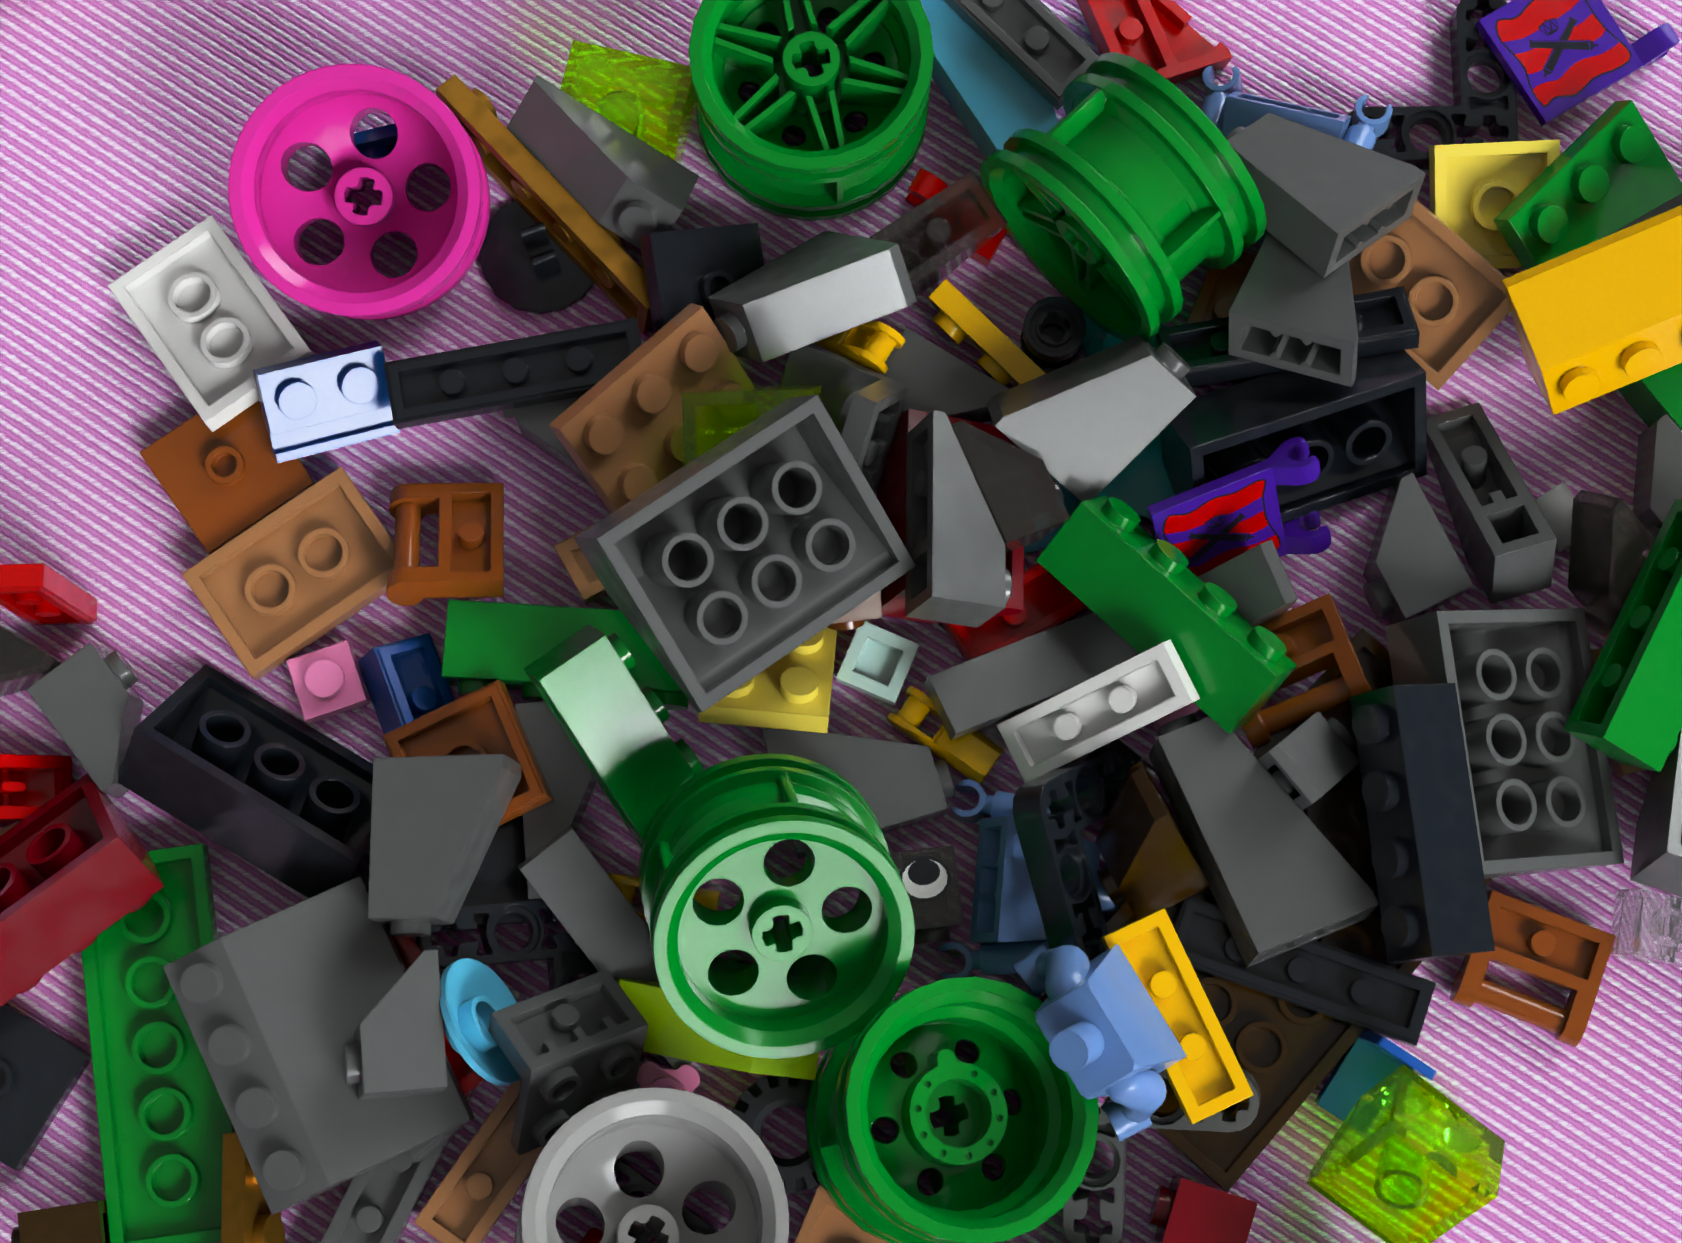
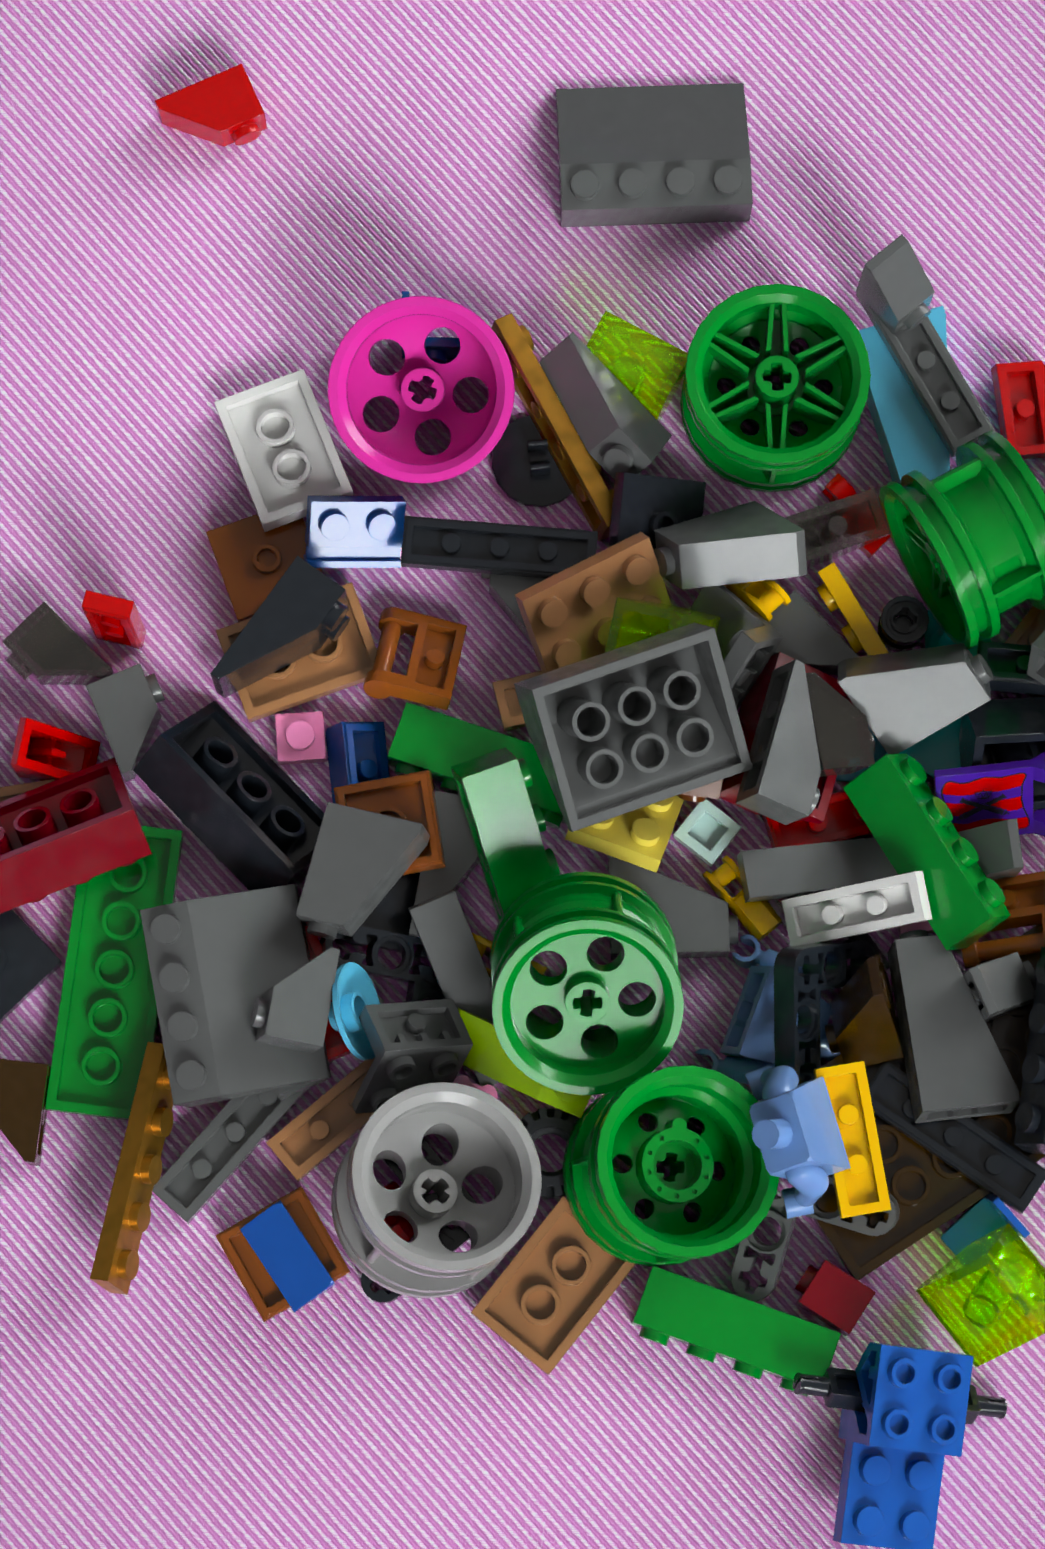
camera: 15 degrees right, 0 degrees up
(262, 546) = (287, 626): none -> black slope
(932, 890) = (702, 1009): clear smoke brick -> none

